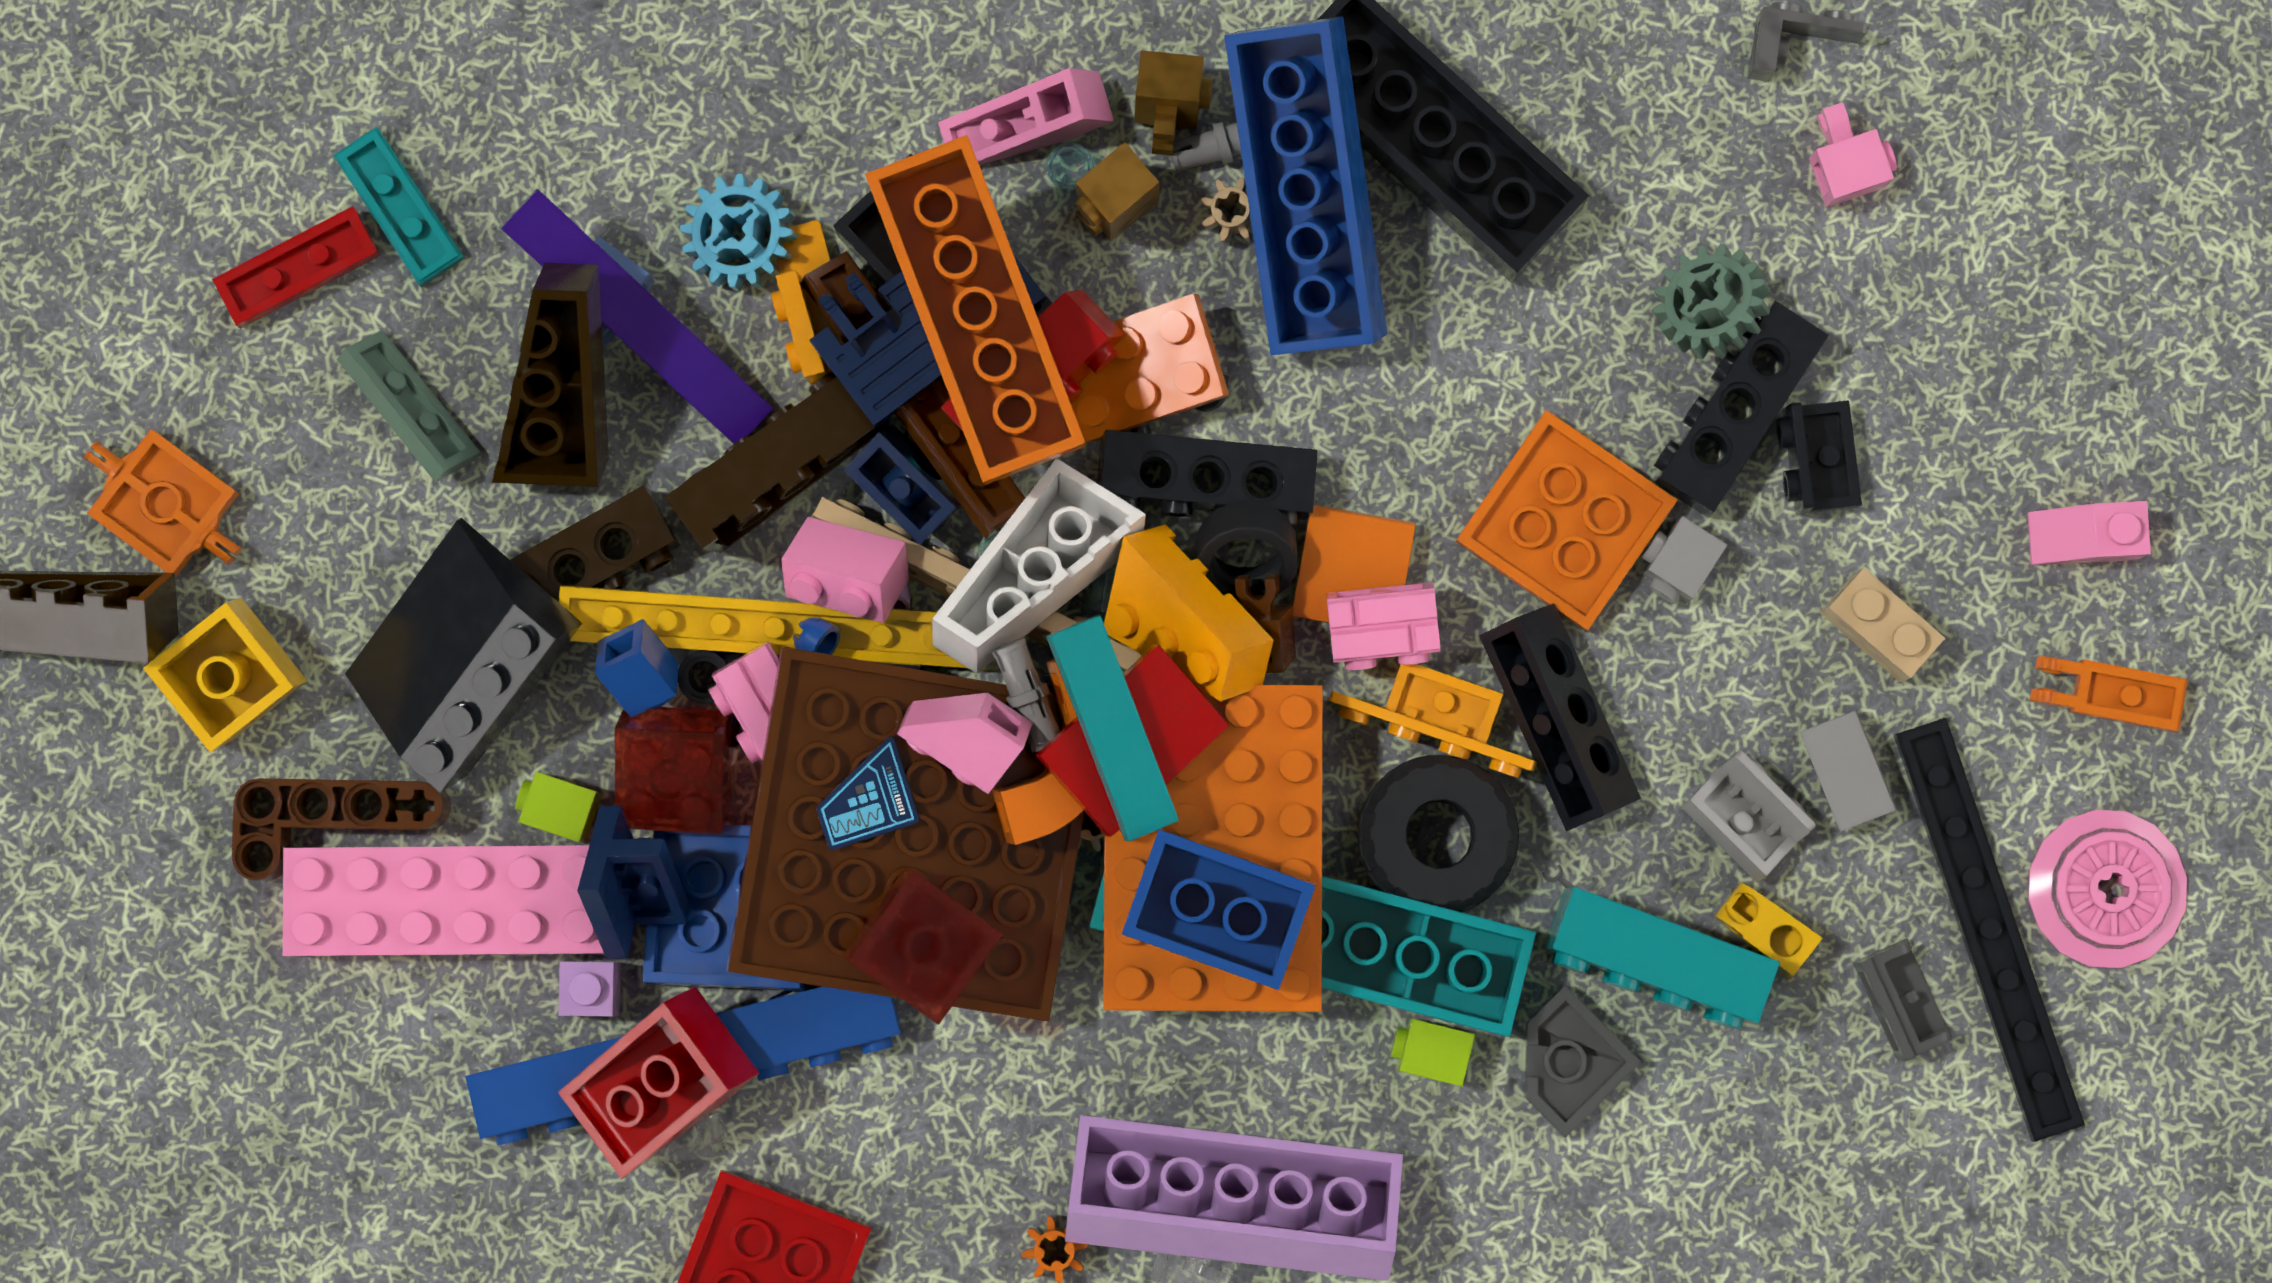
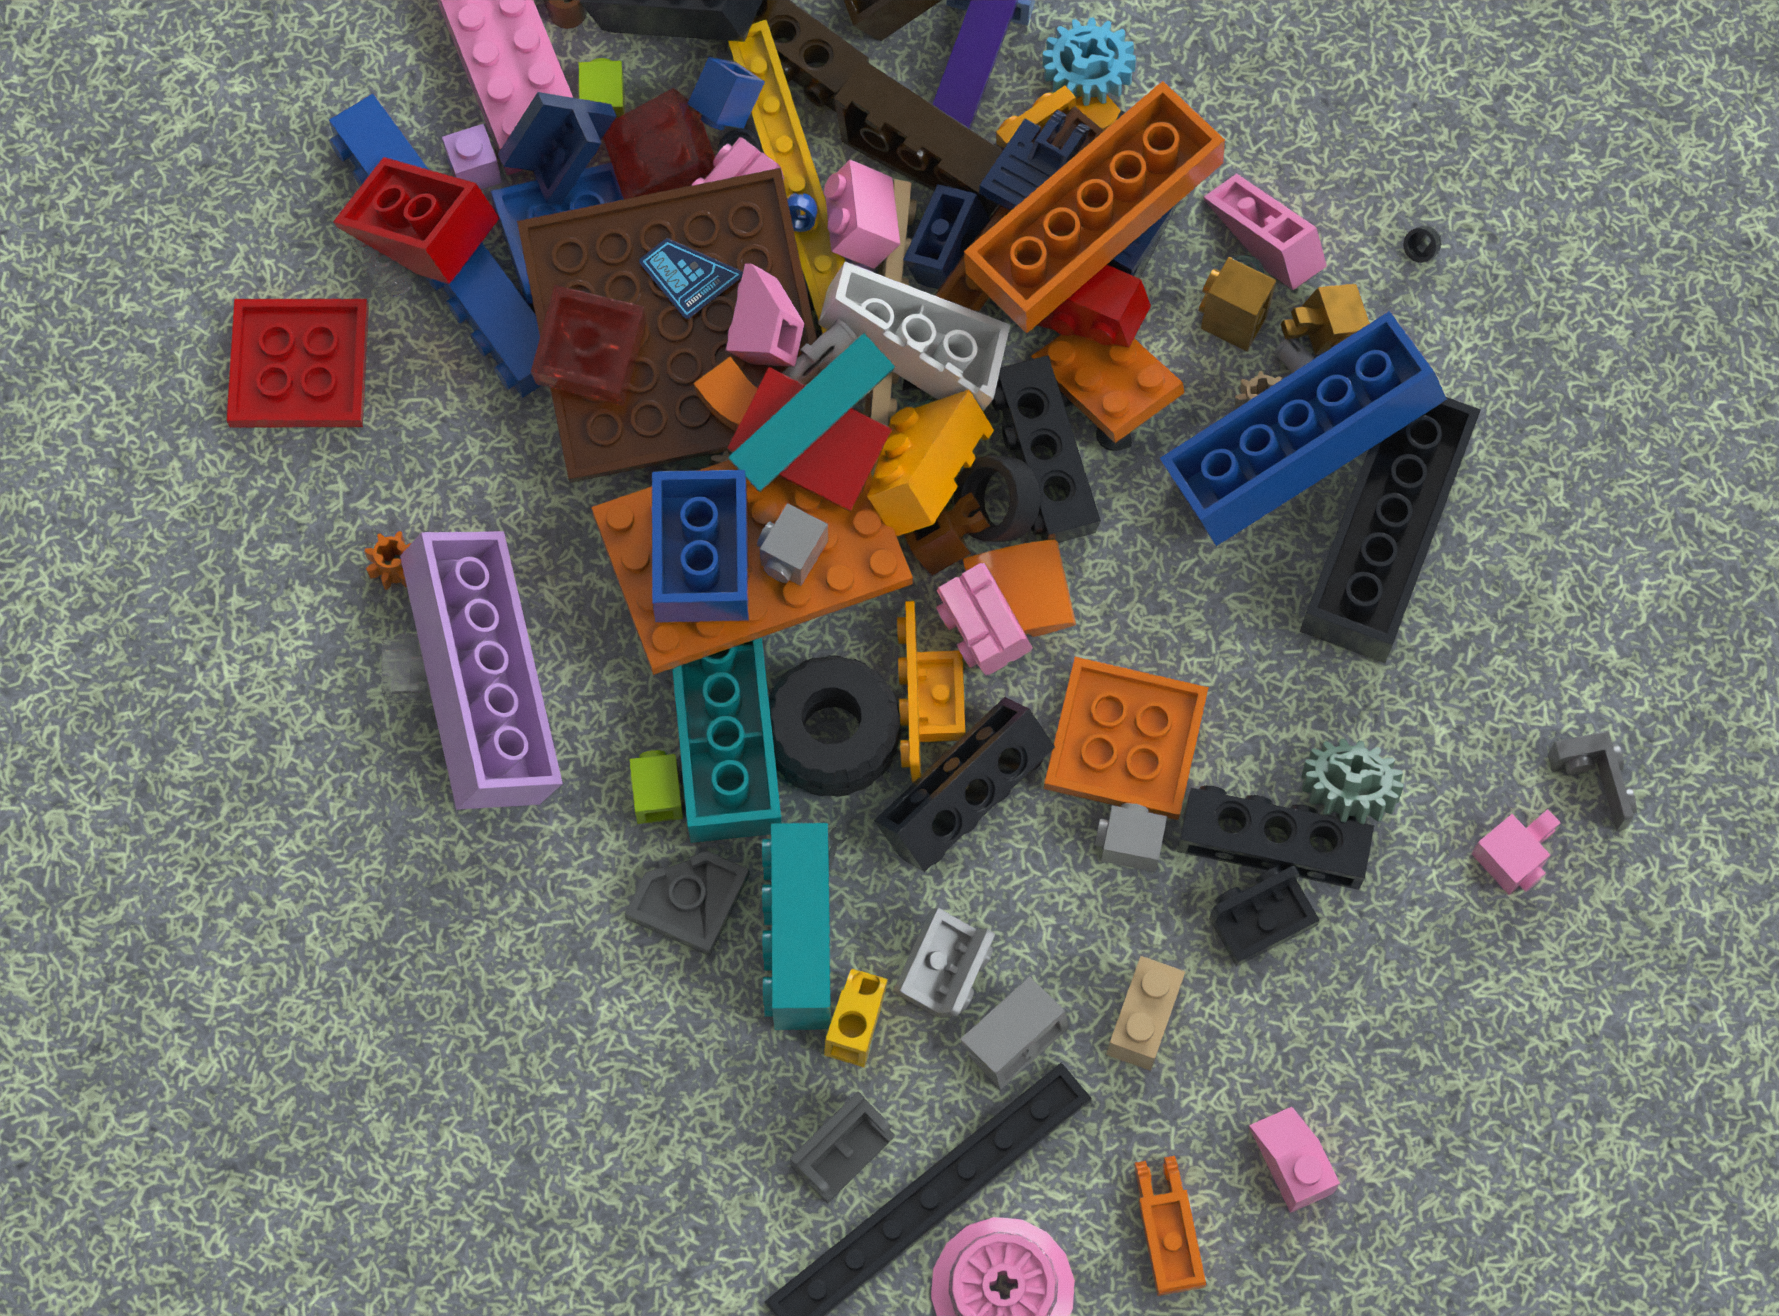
camera: 65 degrees right, 15 degrees down
(1249, 808) = (792, 545): none -> light grey brick

